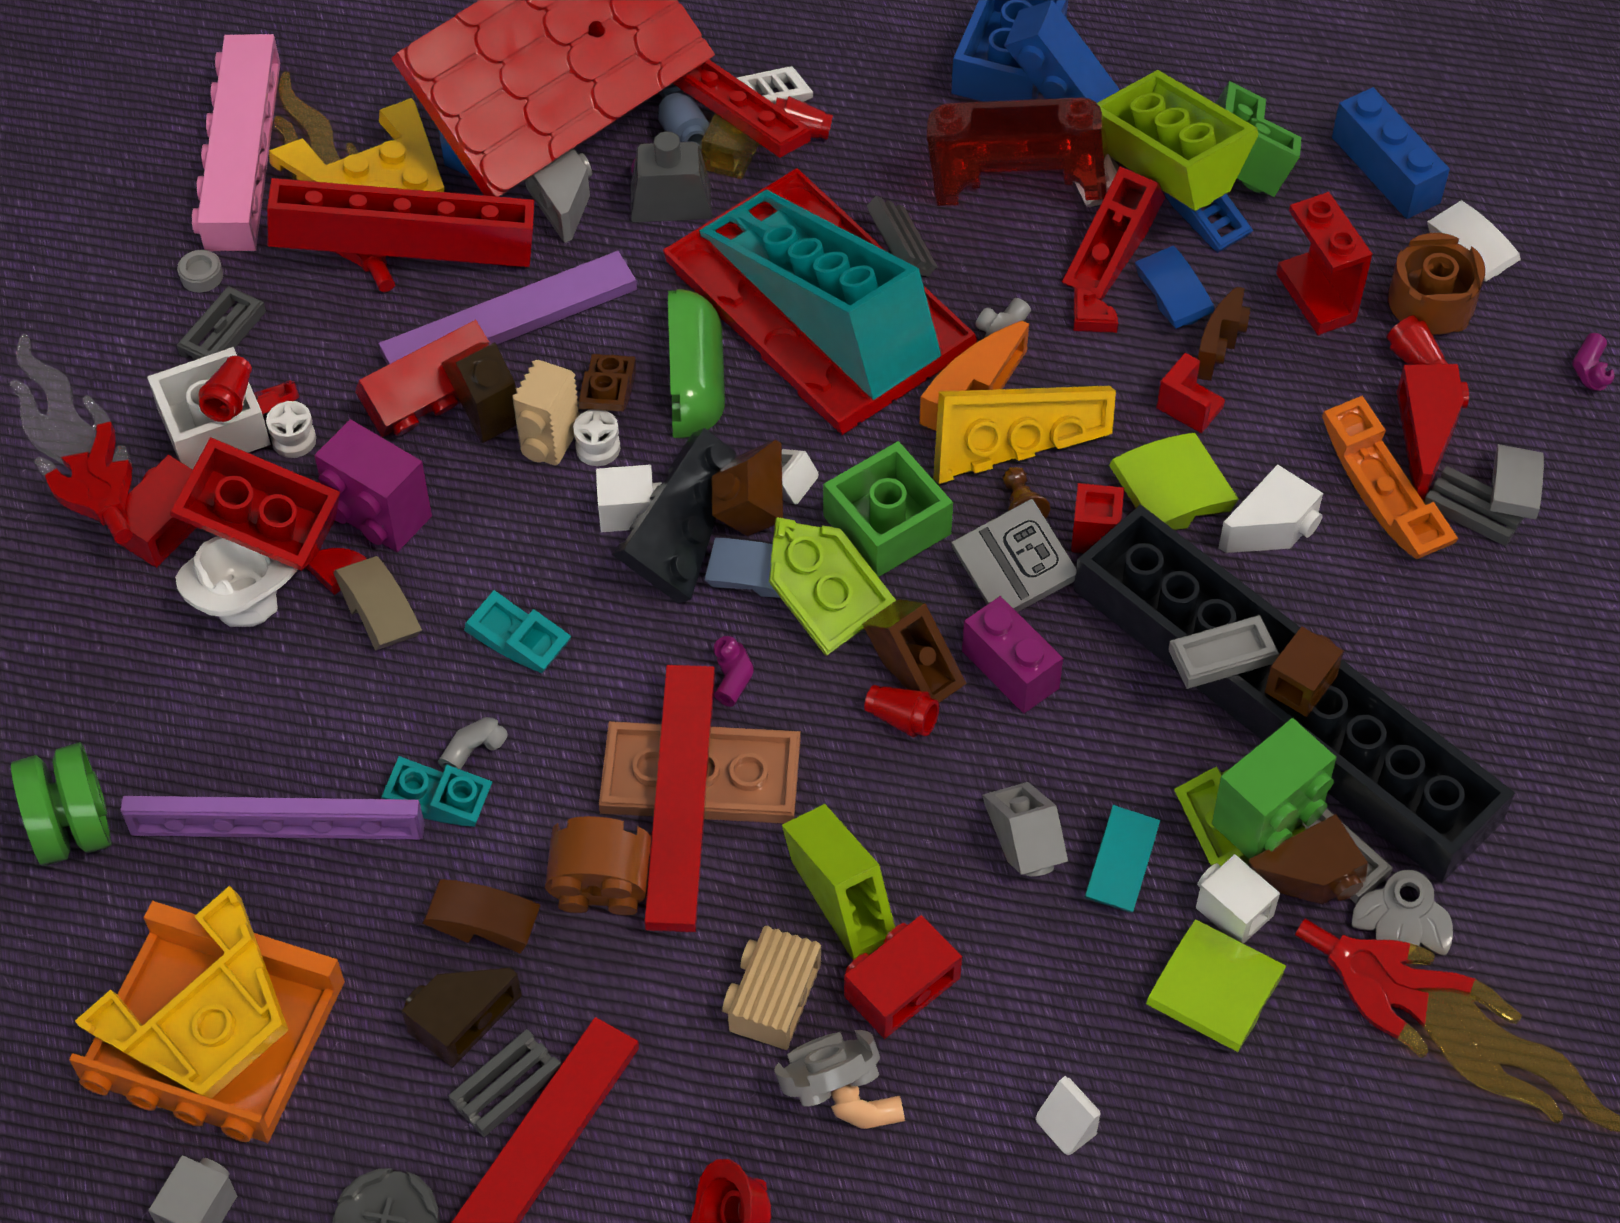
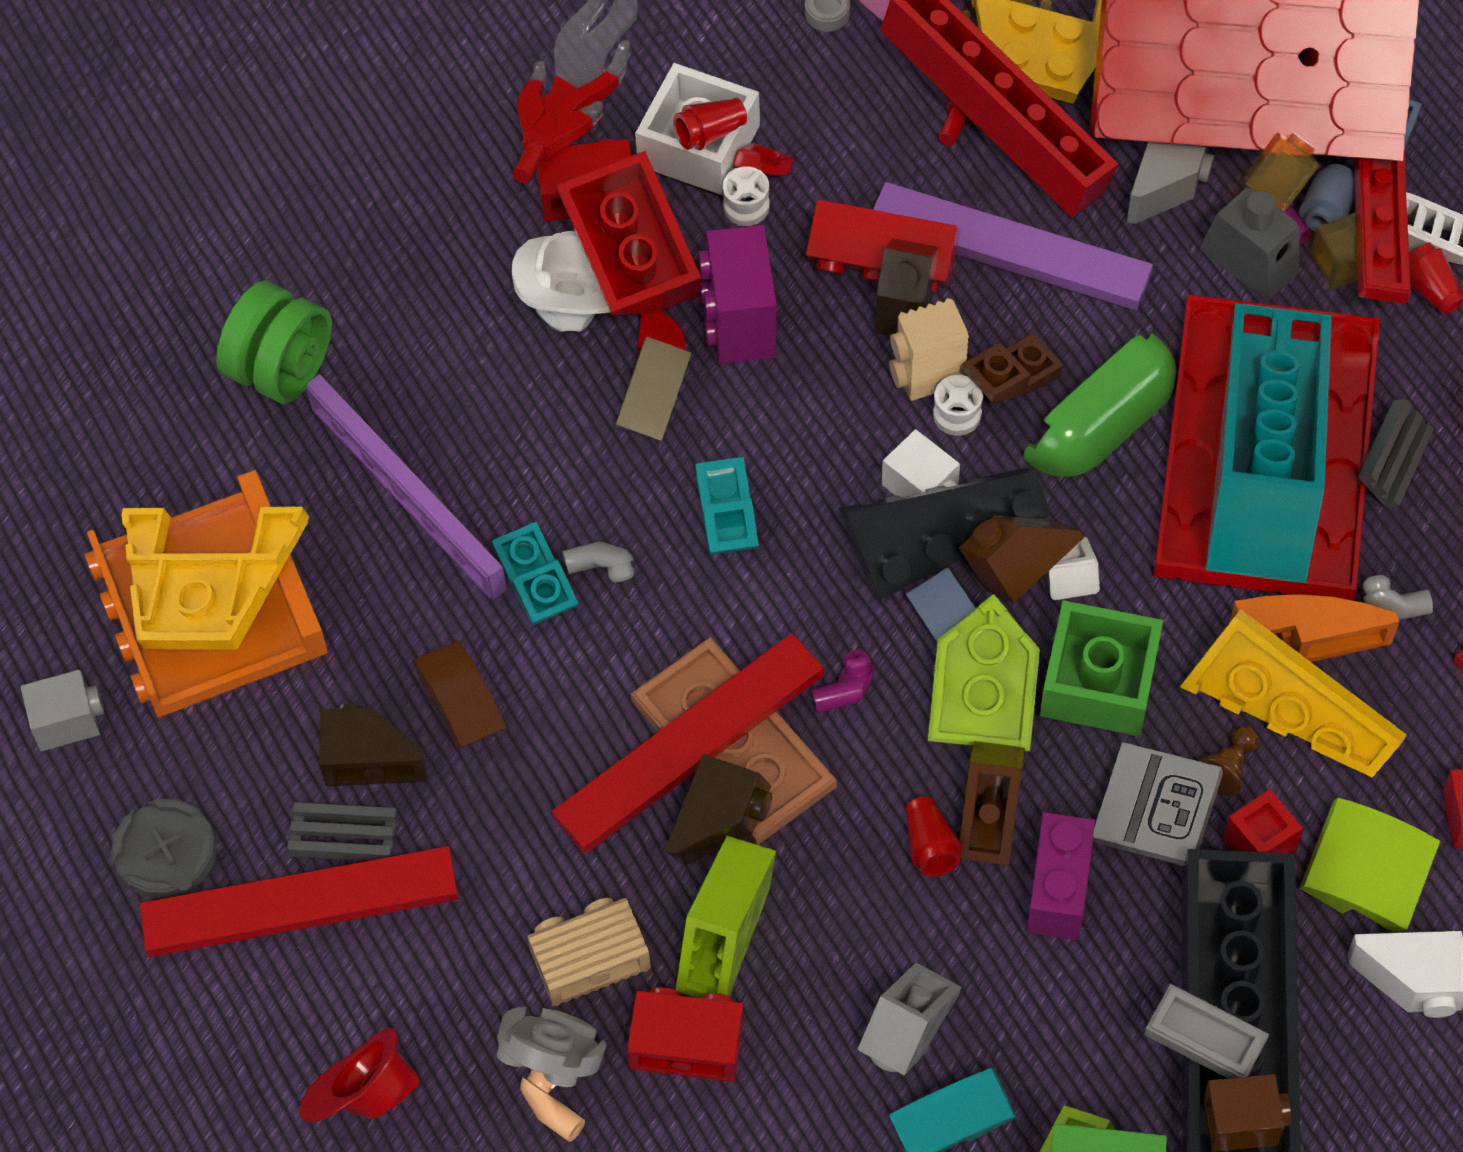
camera: 50 degrees right, 5 degrees up
(228, 329) = (792, 75): dark grey tile -> none
(598, 865) = (565, 737): dark orange brick -> none
(646, 114) = (1283, 168): none -> clear yellow brick
(755, 811) = (718, 804): none -> dark brown slope

